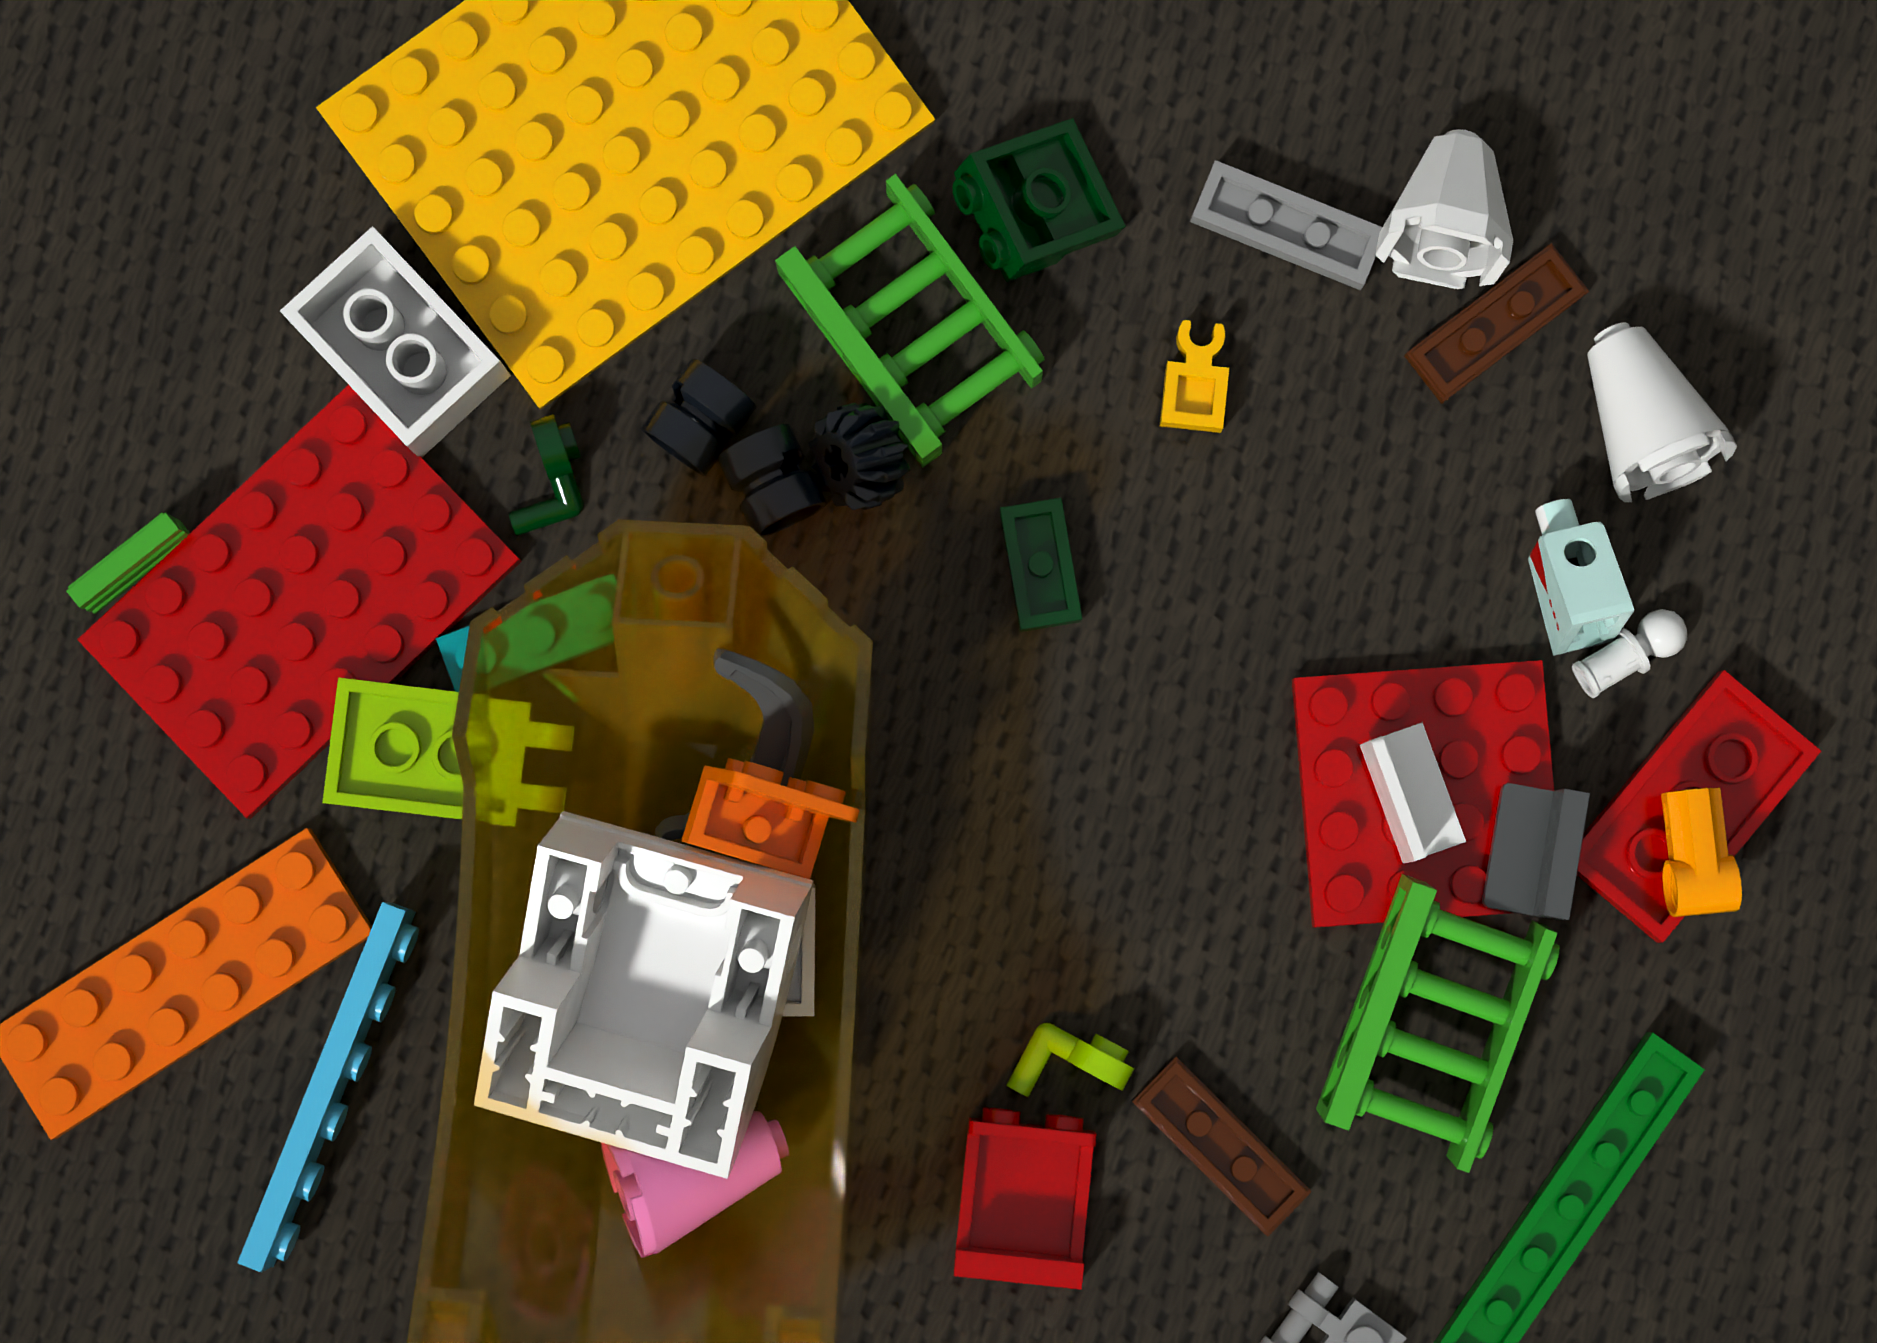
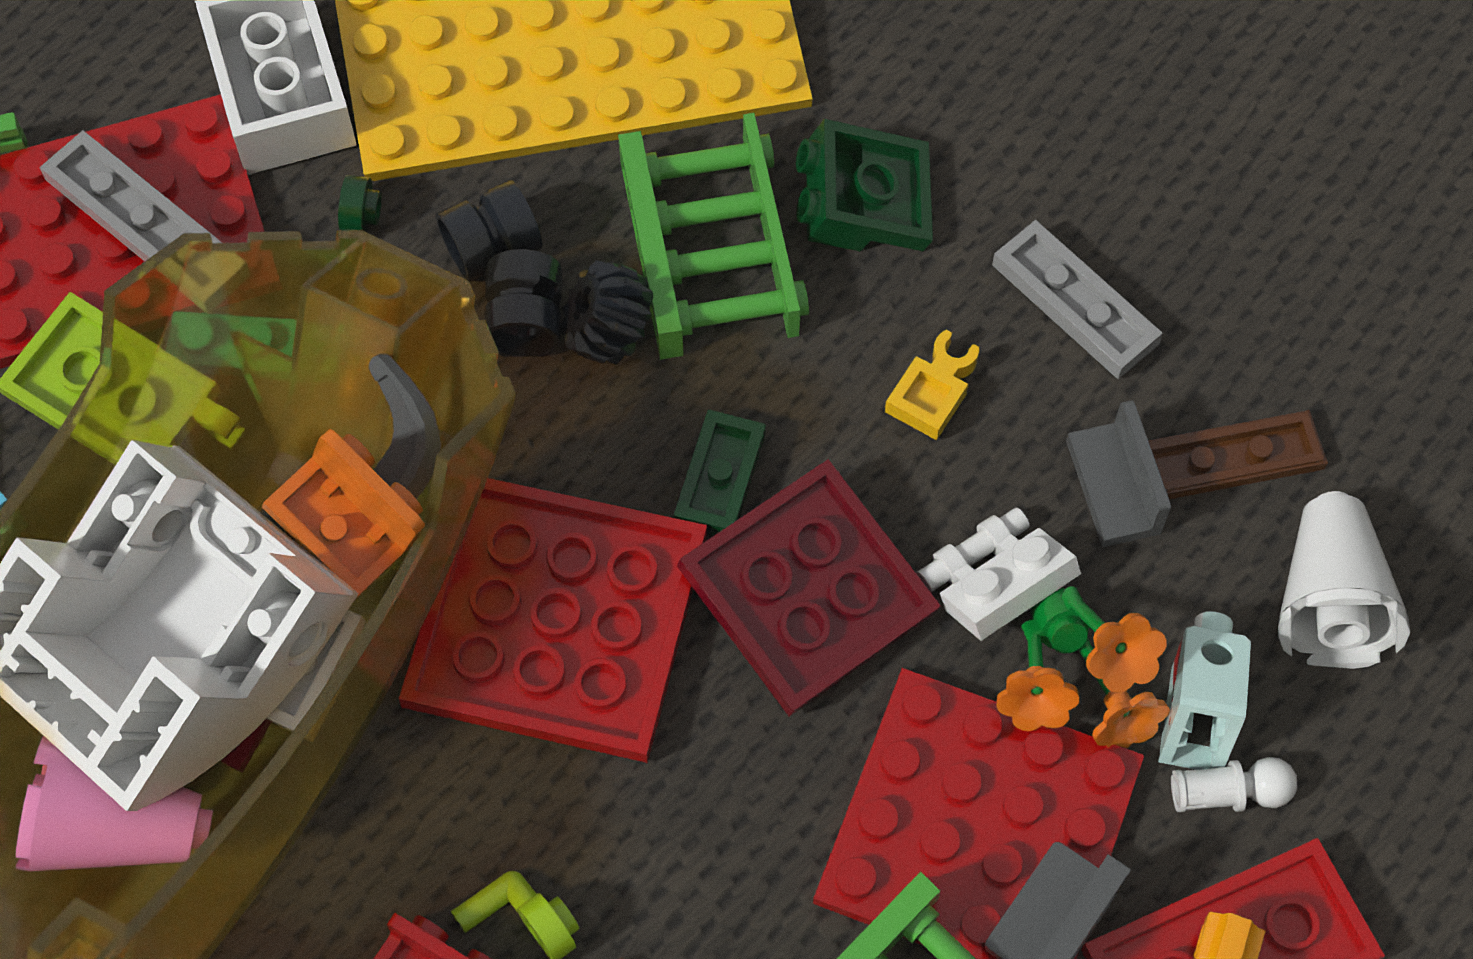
camera: 25 degrees right, 20 degrees down
(362, 568) = (117, 197): none -> light grey plate
(976, 777) = (557, 621): none -> red plate
(1178, 643) = (808, 587): none -> dark red plate
(1355, 555) = (1006, 584): none -> white plate
(1407, 397) = (1120, 478): none -> dark grey panel
(1412, 793) = (962, 808): white panel -> none
(1450, 216) = (1217, 337): white cone -> none
(1507, 609) = (1121, 656): none -> orange plant

